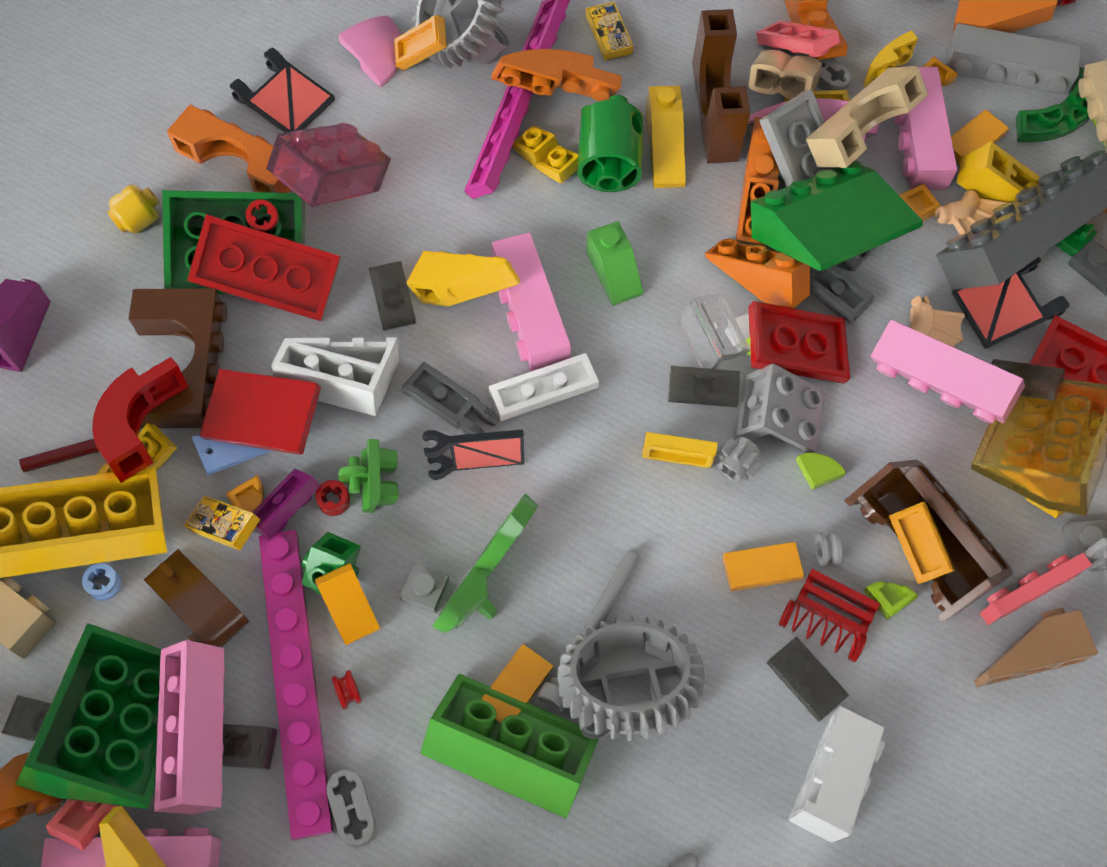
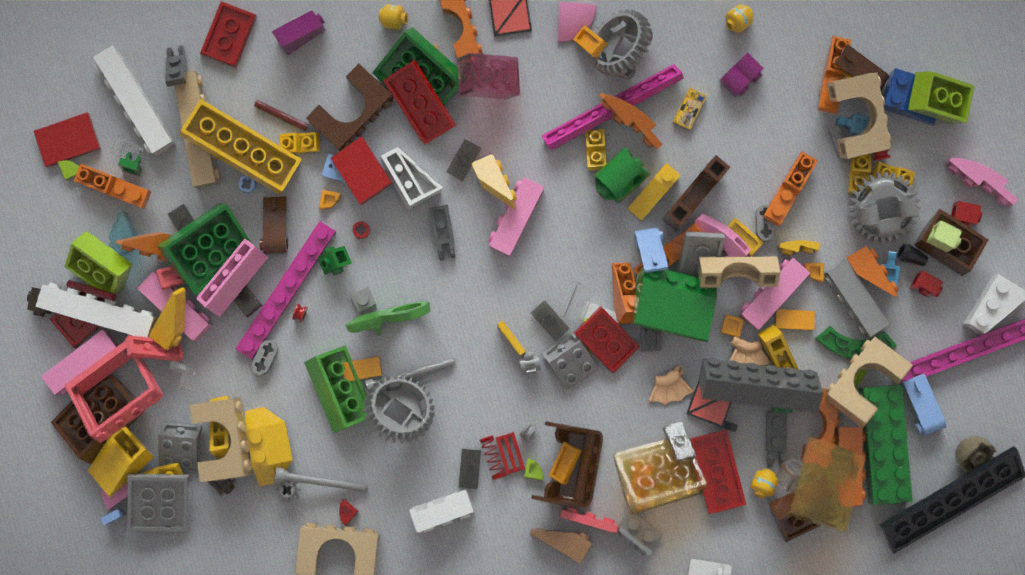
camera: 50 degrees right, 20 degrees up
(123, 410) = (303, 127): red arch -> none
(222, 522) = (309, 203): tile -> none
(252, 220) = (431, 77): red bush -> none
(284, 502) = (339, 215): magenta plate -> none
(347, 604) = (326, 282): light orange tile -> none
(373, 461) = (378, 243): bright green hips -> none
(474, 451) = (415, 256): flag -> none
(543, 387) = (485, 260): white plate -> none
(614, 262) = (568, 233): bright green slope -> none
(735, 184) = (651, 249): none -> light blue door
(763, 566) = (497, 413): light orange tile -> none
(782, 74) = (739, 211): tan brick -> none
(798, 38) = (762, 198): coral plate -> none
(819, 469) = (560, 397): lime tile -> none
(948, 372) = (647, 410): bright pink brick -> none

